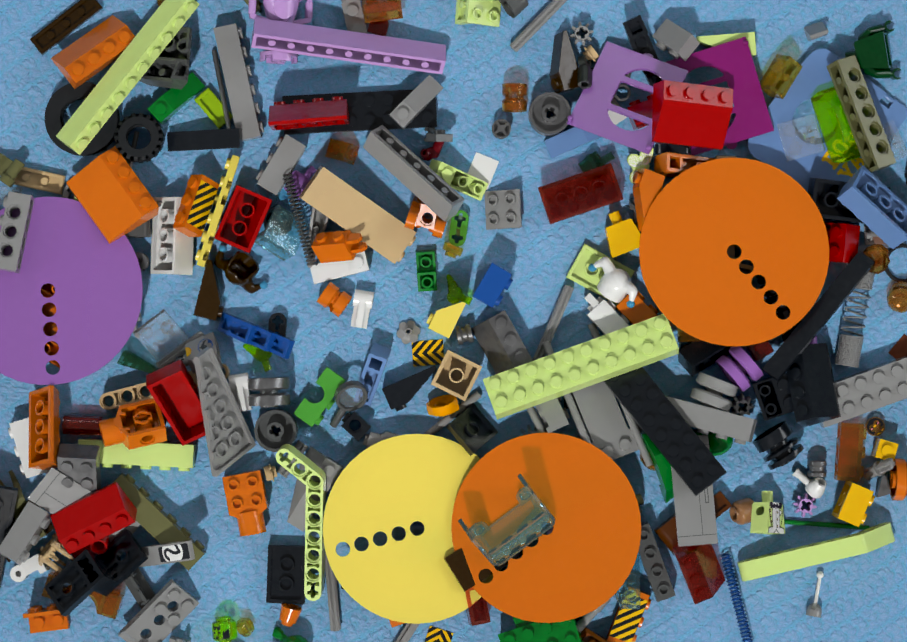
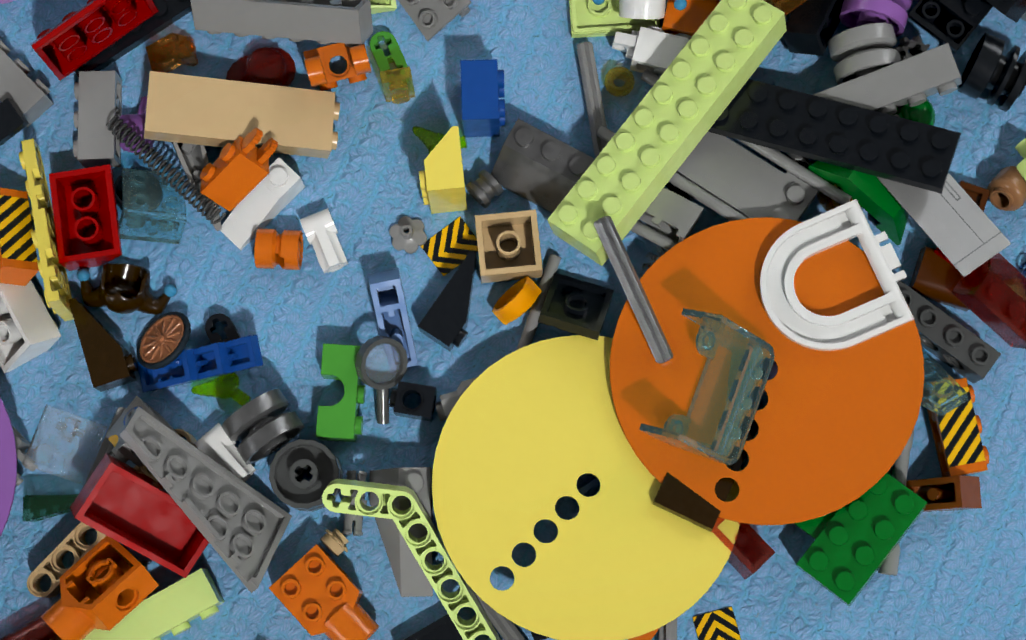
camera: 30 degrees left, 10 degrees down
(244, 311) = (163, 340): none -> nougat wheel
(384, 191) = (264, 66): none -> clear red piece
(426, 270) = (381, 139): green slope -> none
(502, 446) = (633, 289): none -> flat silver axle
(579, 324) = (619, 73): none -> clear yellow plate
(606, 535) = (852, 326): none -> white piece

